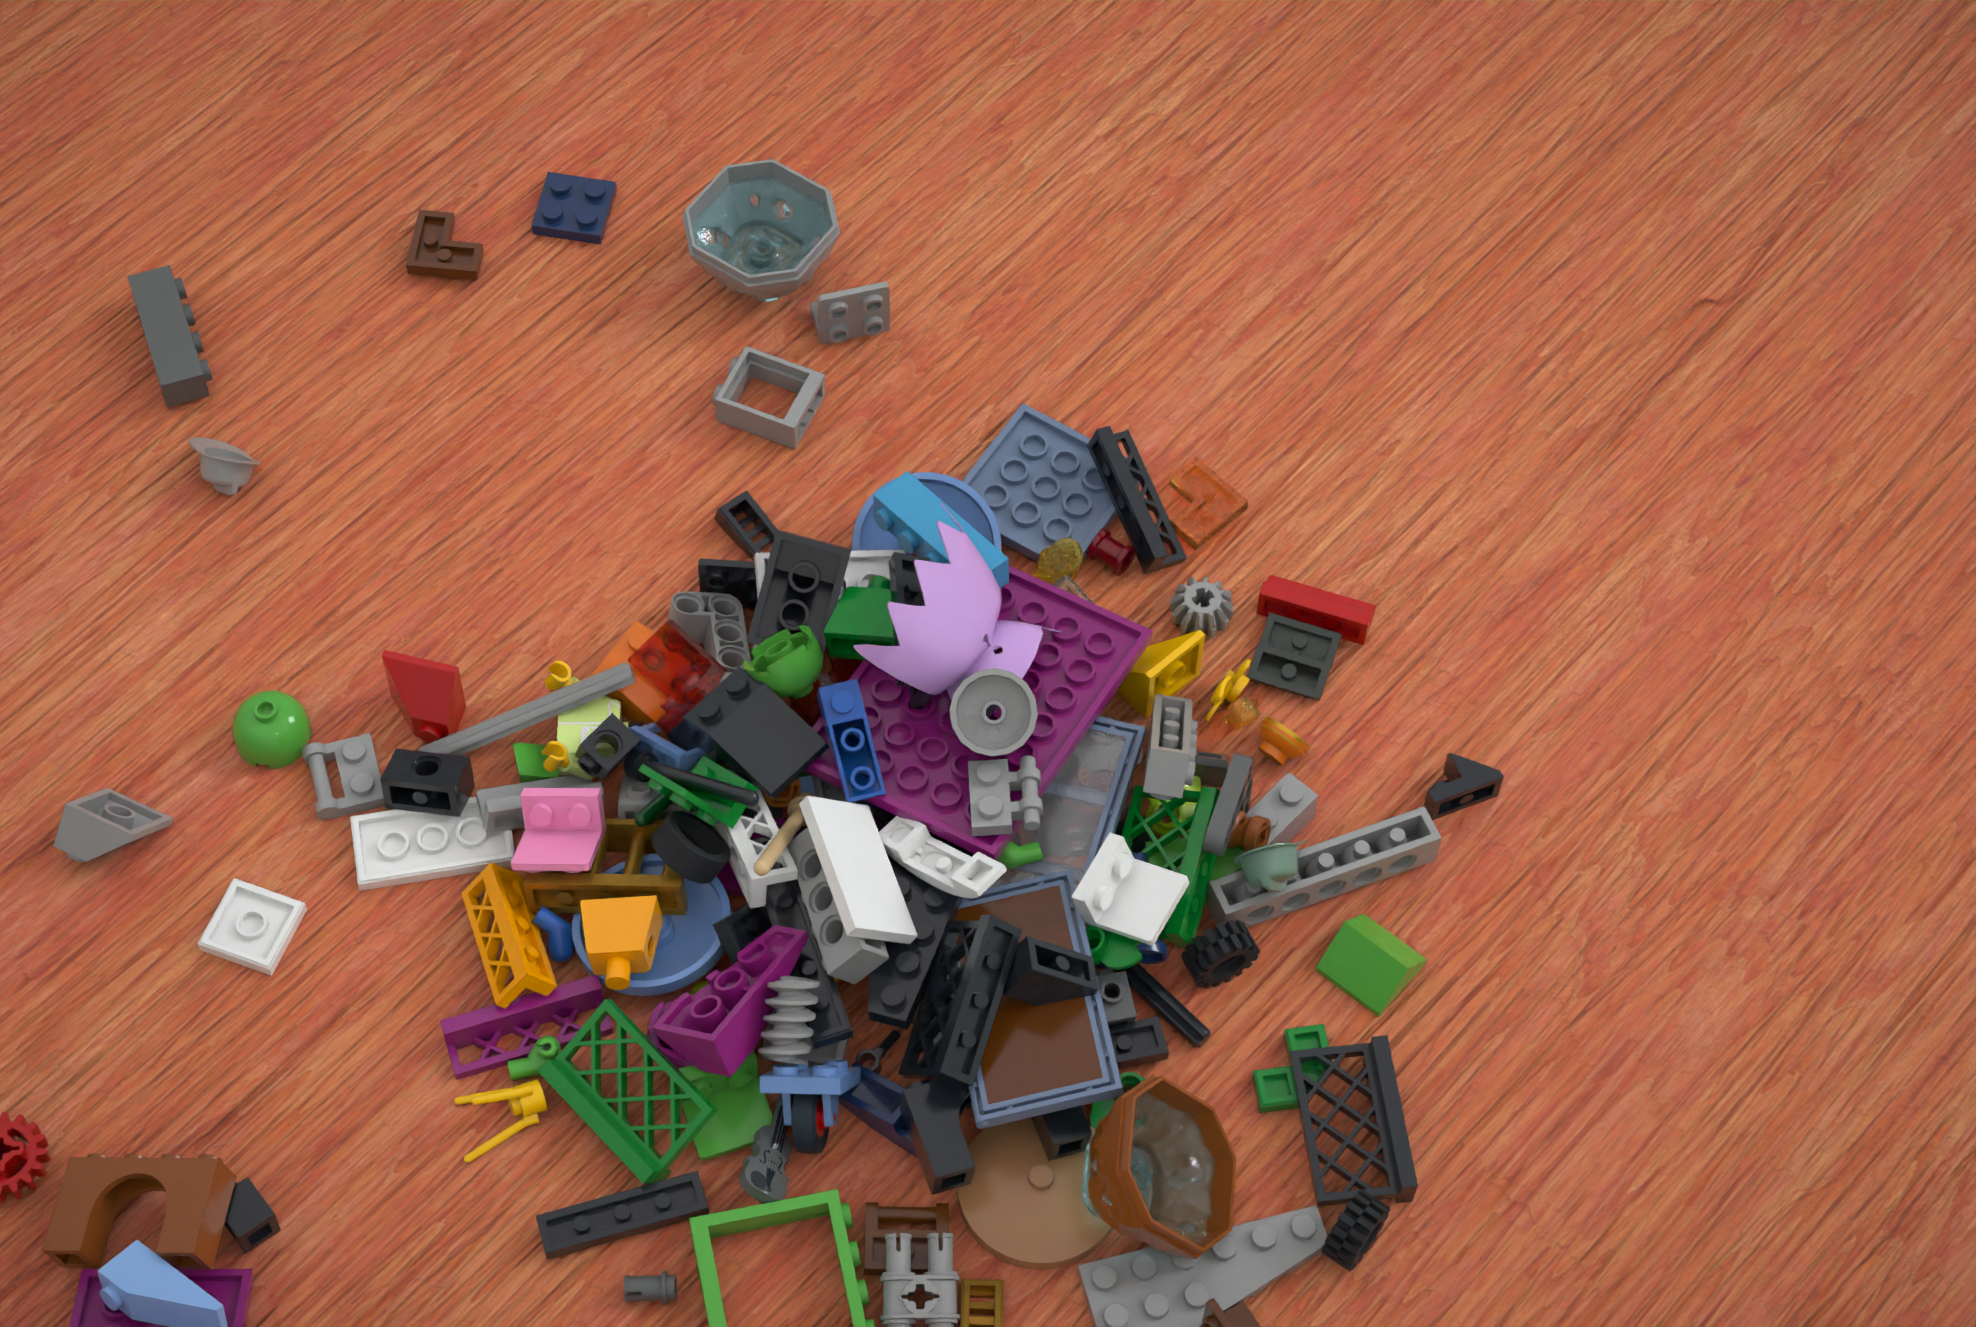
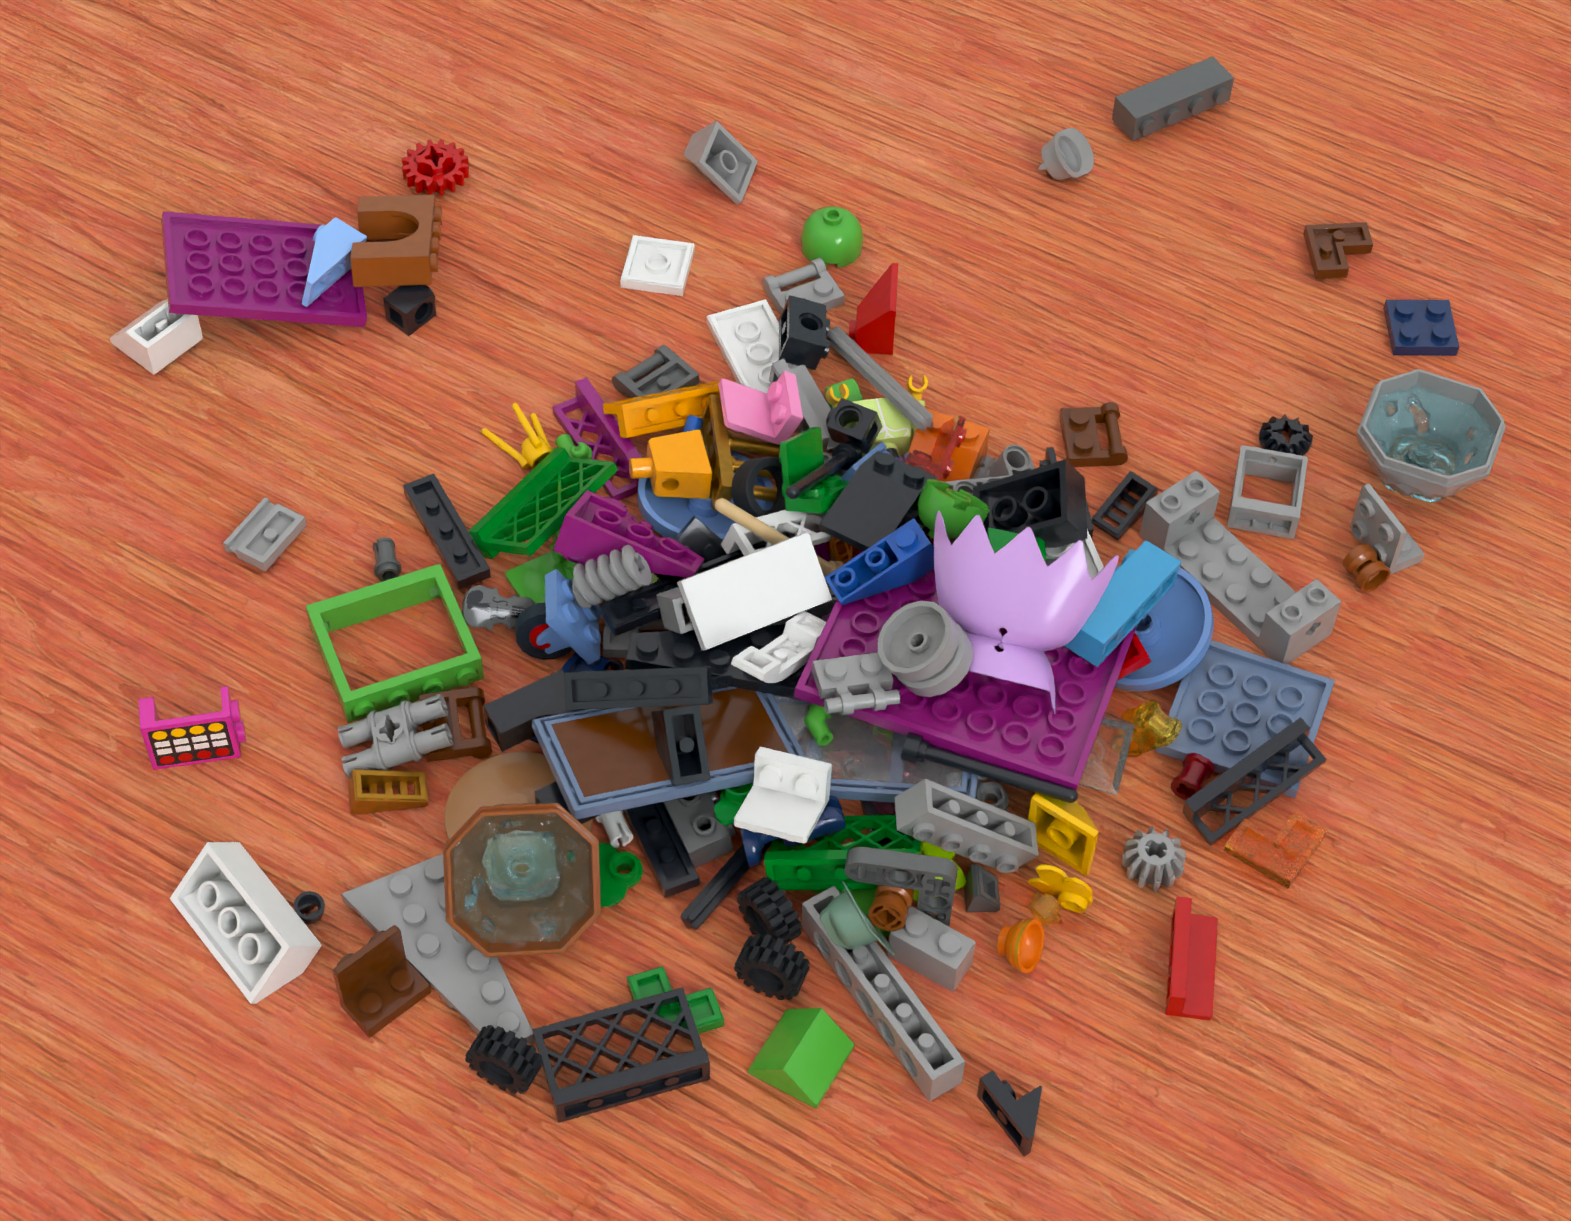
camera: 80 degrees right, 5 degrees down
(456, 948) = (671, 375): none -> dark grey plate
(644, 547) = (1082, 438): none -> reddish brown plate
(702, 375) = (1273, 439): none -> black gear
(857, 462) = (1233, 577): none -> light grey plate
(888, 340) = (1365, 566): none -> dark orange wheel
(1078, 763) = (919, 750): none -> black piece
(1282, 962) = (772, 966): none -> black tyre
(1294, 656) = (1126, 950): pearl dark grey slope -> none

